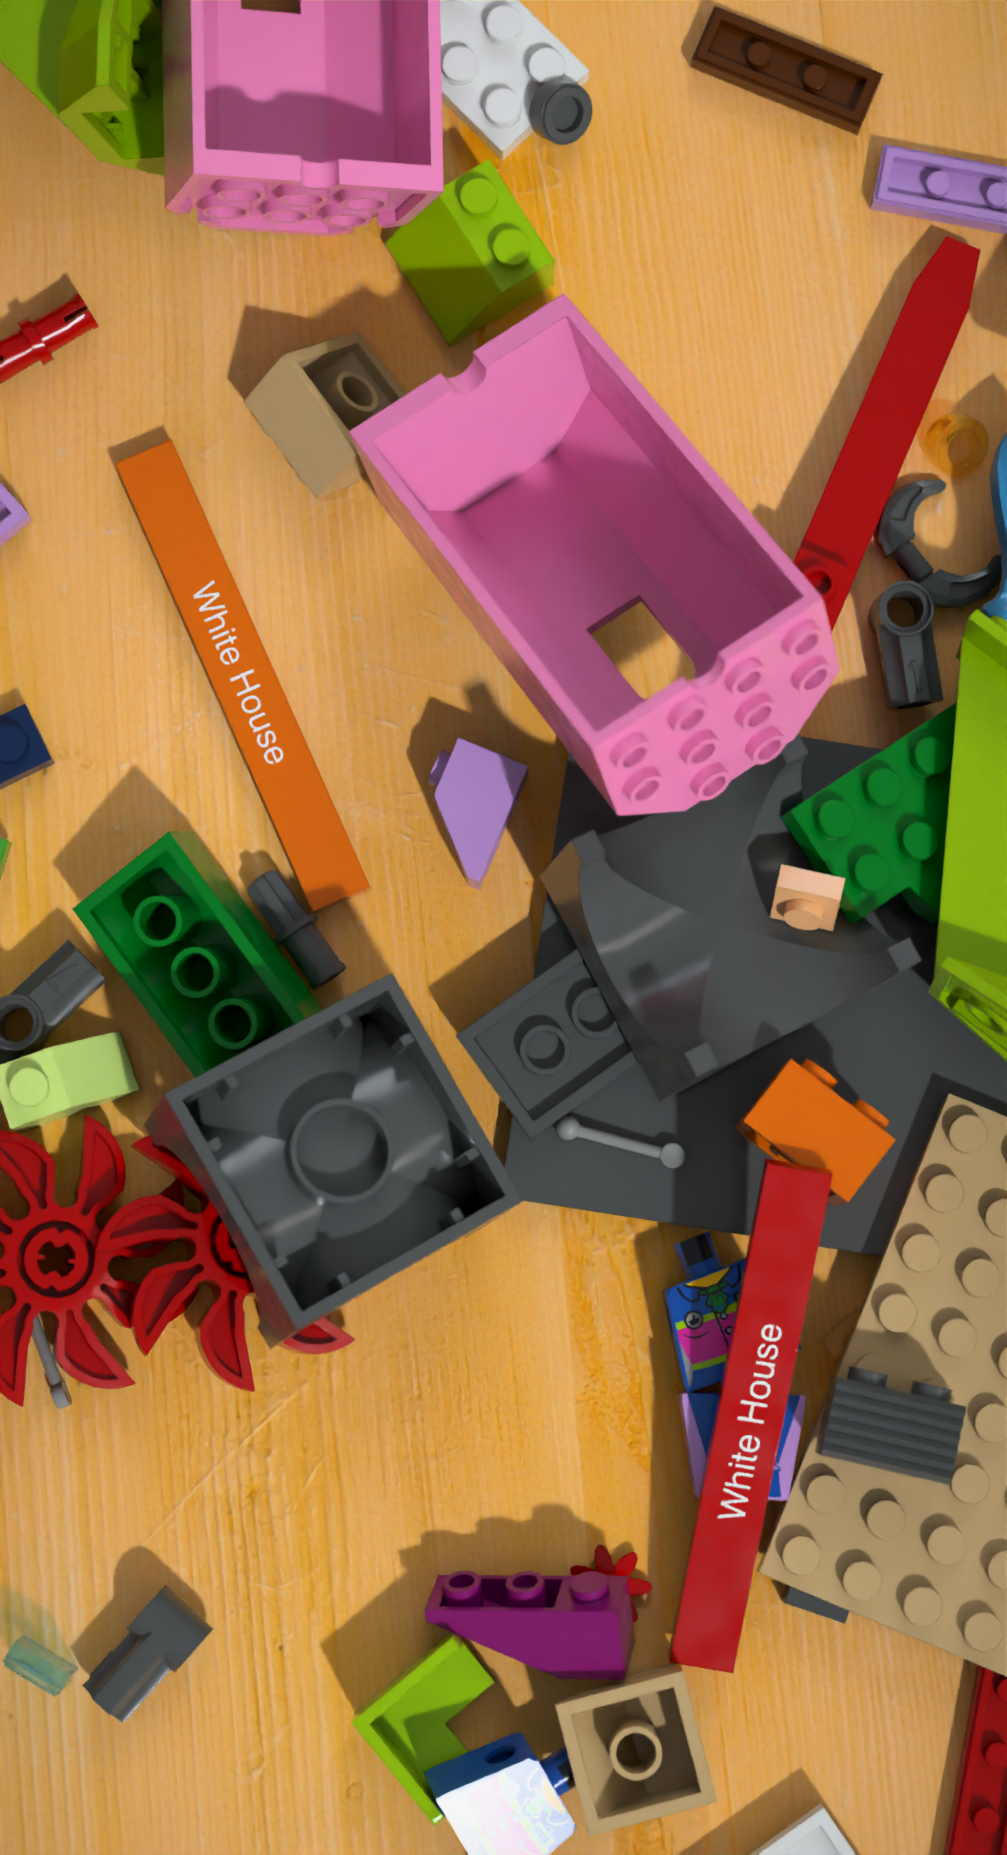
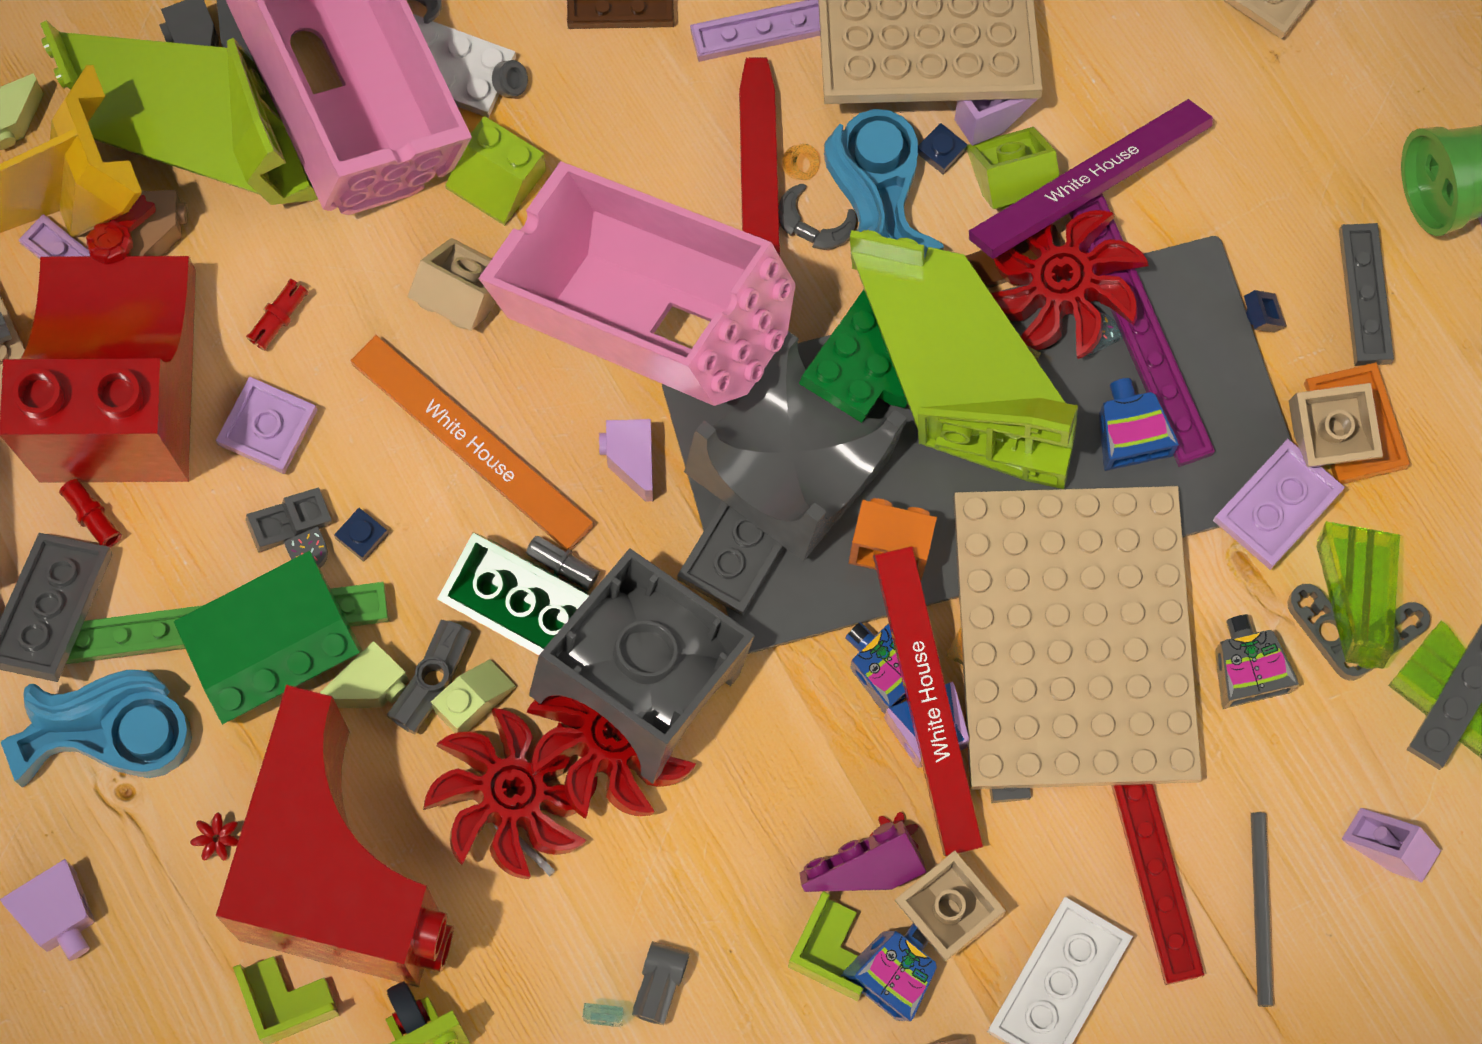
camera: 25 degrees left, 10 degrees down
(670, 1155) = (822, 592): light grey hinge -> none
(807, 898) = (832, 417): light nougat plate -> none
(889, 1427) = (1004, 672): dark grey brick -> none
(907, 653) = (825, 276): dark grey piece -> none

